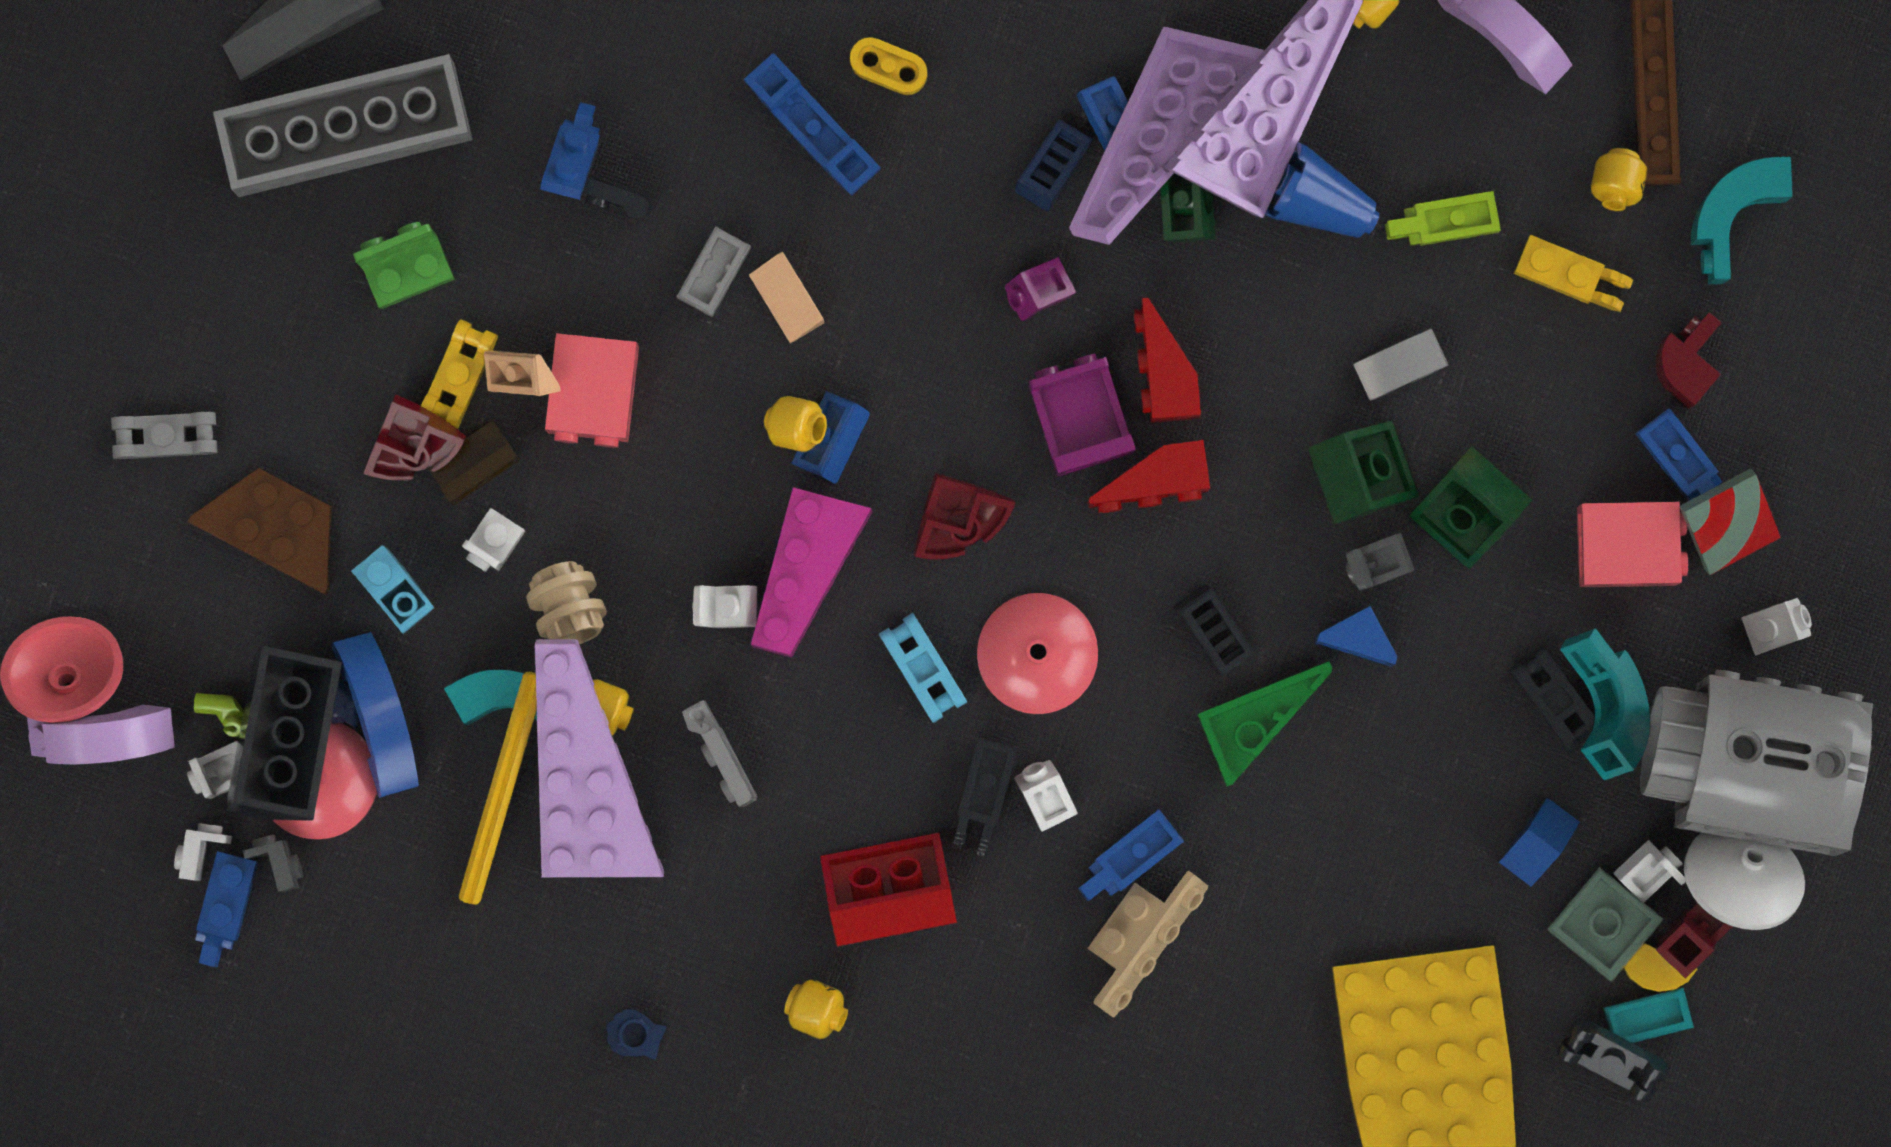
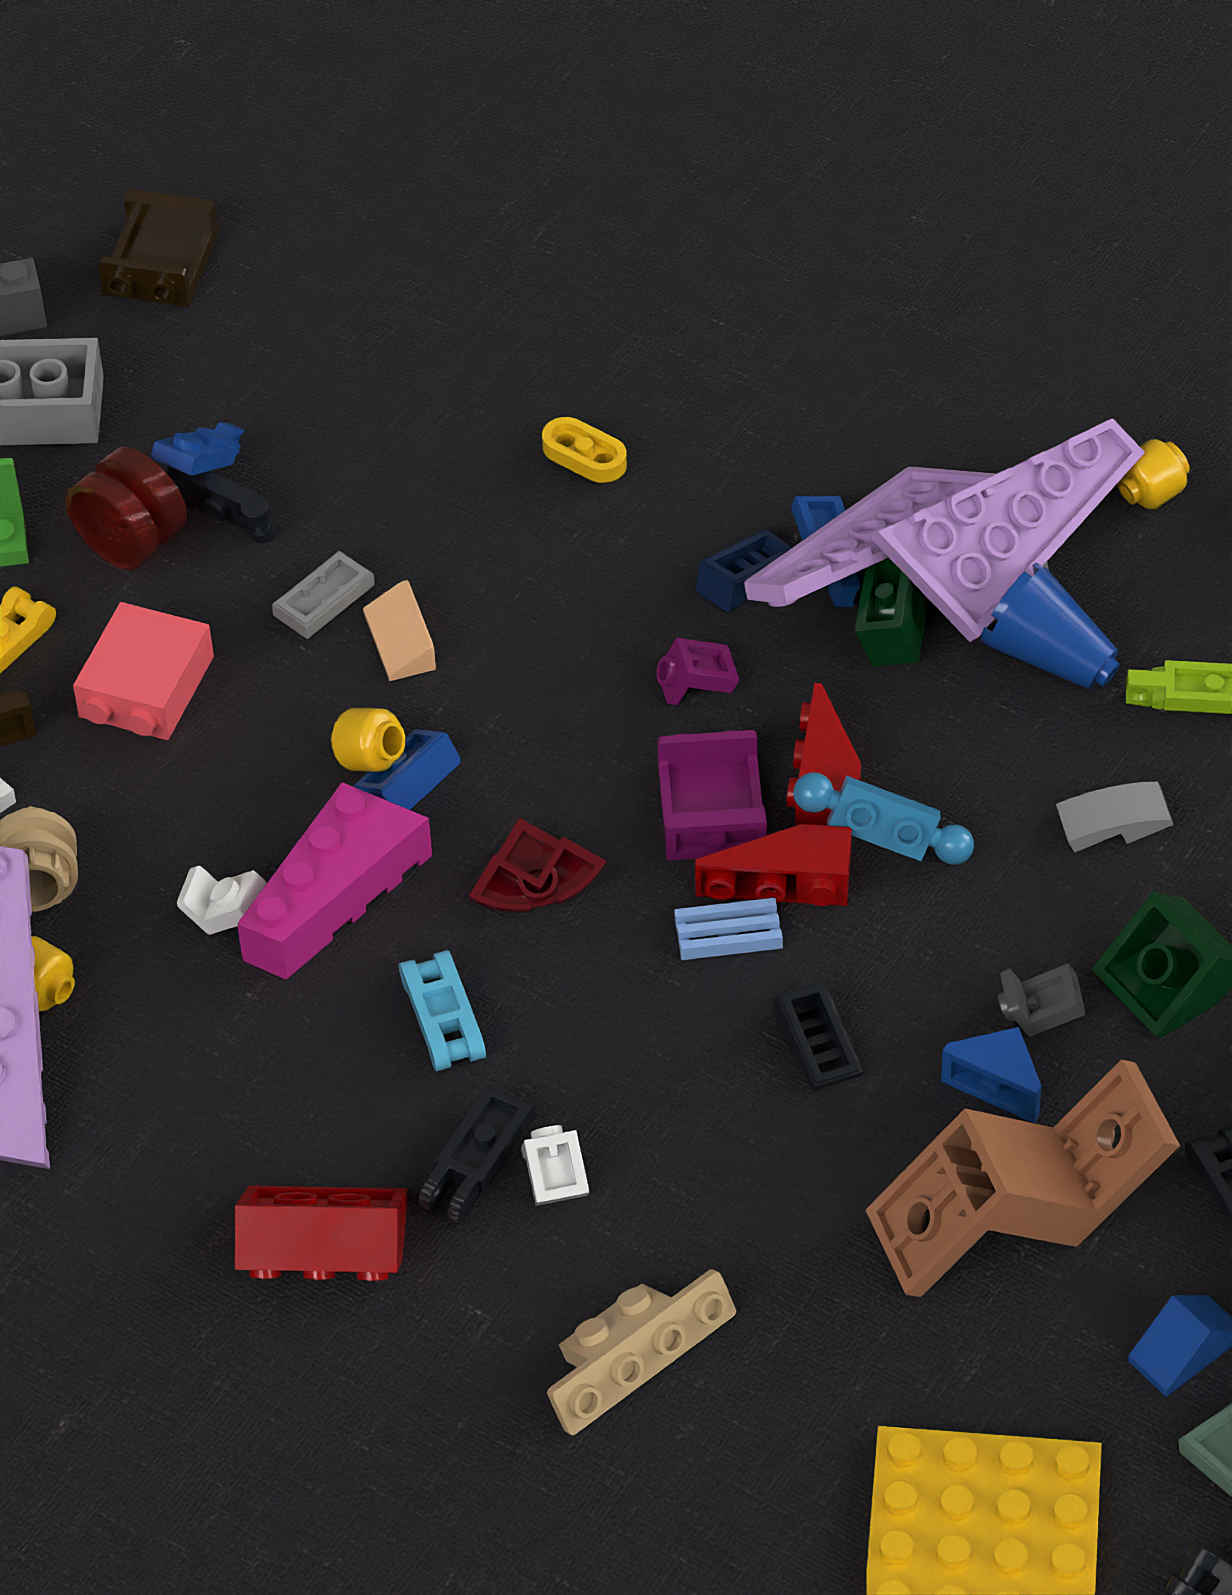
camera: 15 degrees right, 35 degrees down
(519, 373) = (64, 629): light nougat slope -> none
(532, 228) = (126, 508): none -> clear red wheel
(720, 753) = (161, 1045): light grey hinge -> none
(811, 125) = (475, 483): blue slope -> none
(816, 1009) = (184, 1338): yellow head -> none
(1031, 683) = (594, 1045): coral dish -> none
(1132, 856) = (642, 1253): blue hinge -> none
(1155, 528) = (726, 922): none -> light blue tile
(1225, 422) = (884, 818): none -> dark azure plate
(1248, 723) = (835, 1138): green wing -> none
(1363, 471) = (1041, 904): dark green slope -> none
(1401, 751) = (1021, 1178): none -> nougat bracket

